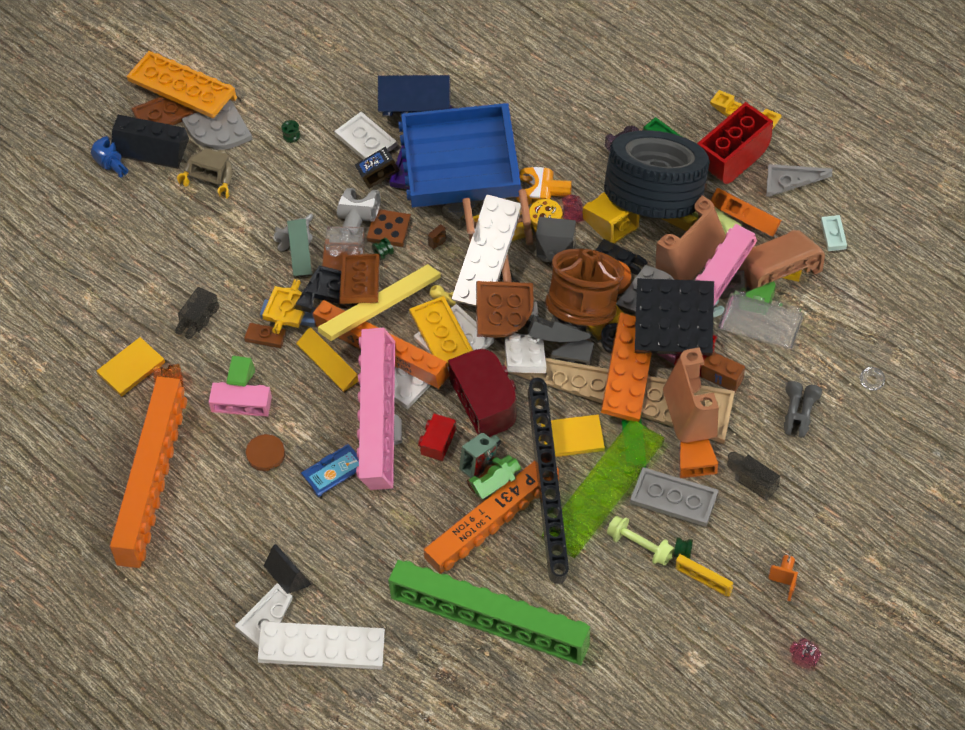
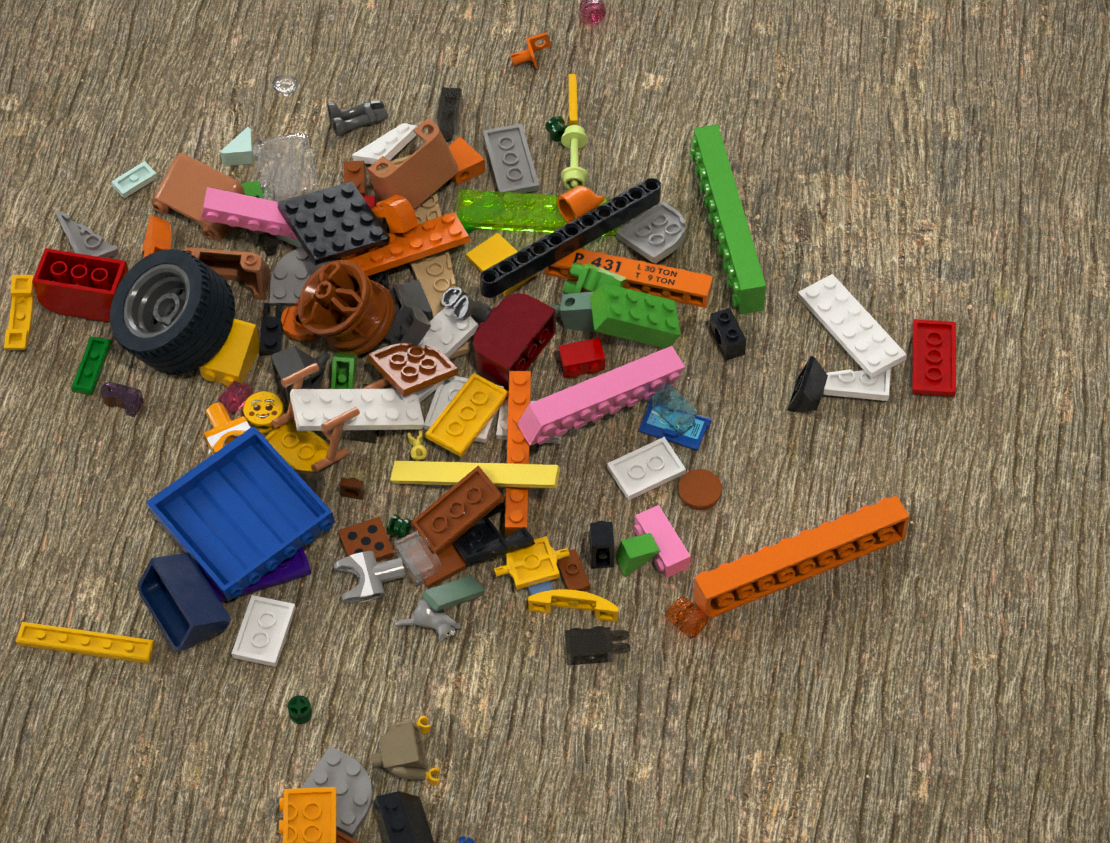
camera: 125 degrees left, 0 degrees up
(130, 366) = (695, 668): yellow tile -> none
(219, 333) = (573, 599): none -> yellow slope
(245, 688) = (934, 357): none -> red plate
(263, 352) = (602, 544): none -> black brick
(308, 425) = (646, 468): none -> white plate
(327, 360) = (562, 500): yellow slope -> none
(336, 465) = (674, 409): none -> clear light blue window
(377, 167) = (301, 587): brick -> none
(380, 548) = (727, 334): none -> black brick
(436, 478) = (634, 315): none -> bright green brick
(439, 45) = (85, 642): none -> yellow tile
(517, 554) = (654, 232): none -> light grey plate
(523, 357) = (464, 305): none -> dark grey piece
(538, 275) = (344, 370): none -> bright green slope
(577, 501) = (577, 202): none -> orange piece
(654, 364) = (397, 212): none -> orange brick
(751, 415) = (386, 145): none -> white wing
(817, 315) = (239, 150): none -> light aqua slope

